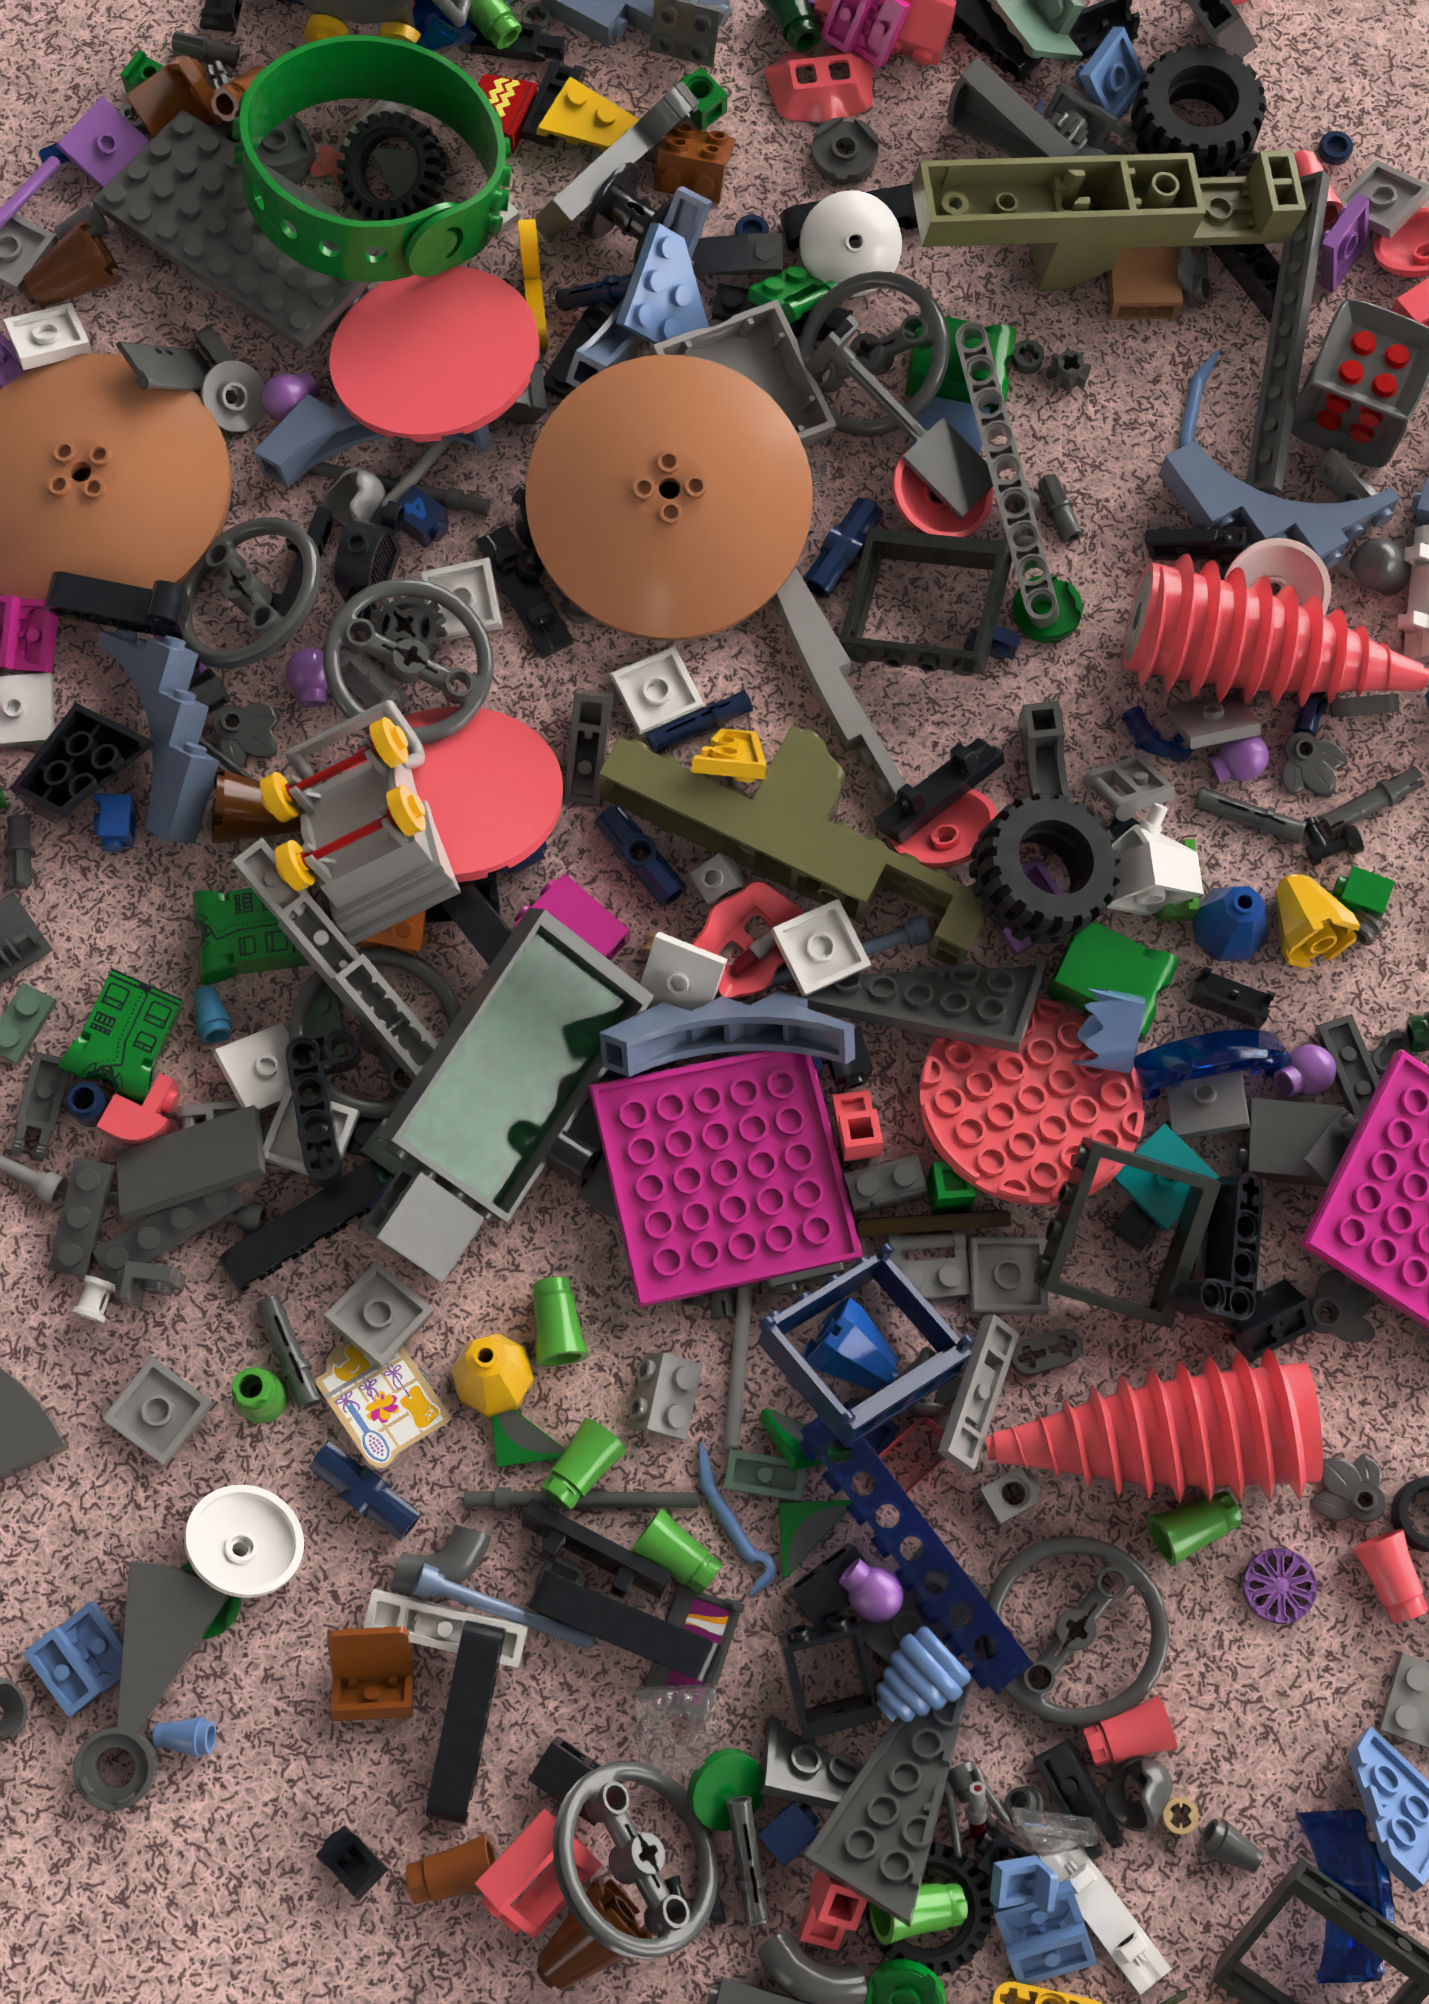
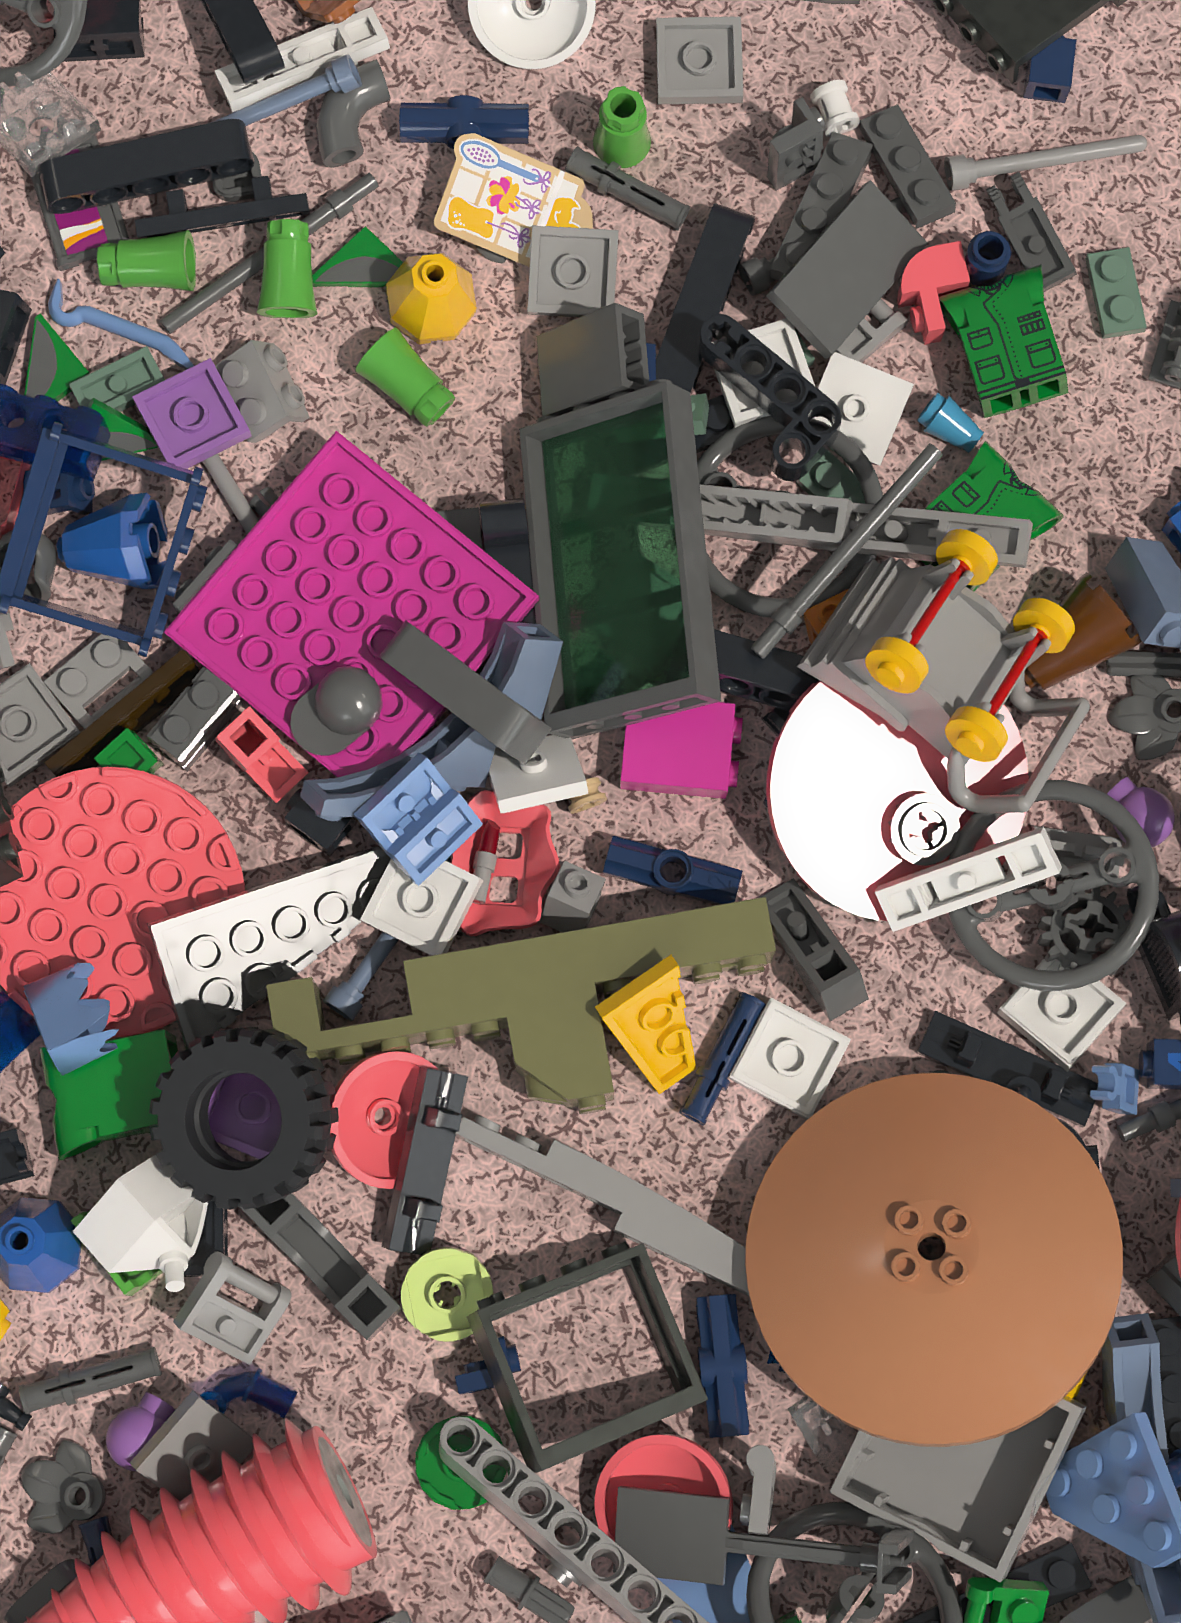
camera: 145 degrees right, 5 degrees up
(438, 934) = (787, 618): none -> dark grey bar
(451, 743) = (941, 837): none -> gear
(459, 694) = (968, 879): none -> white hinge
(469, 528) = (1117, 1087): none -> medium blue plate
(693, 1048) = (465, 692): none -> dark grey beam
(730, 1404) = (192, 415): none -> medium lavender plate
(785, 1111) = (336, 711): none -> dark grey cap
(786, 988) = (418, 819): none -> medium blue slope
(879, 451) = (757, 1507): none -> light grey plate
(978, 723) = (425, 1278): none -> yellowish green plate

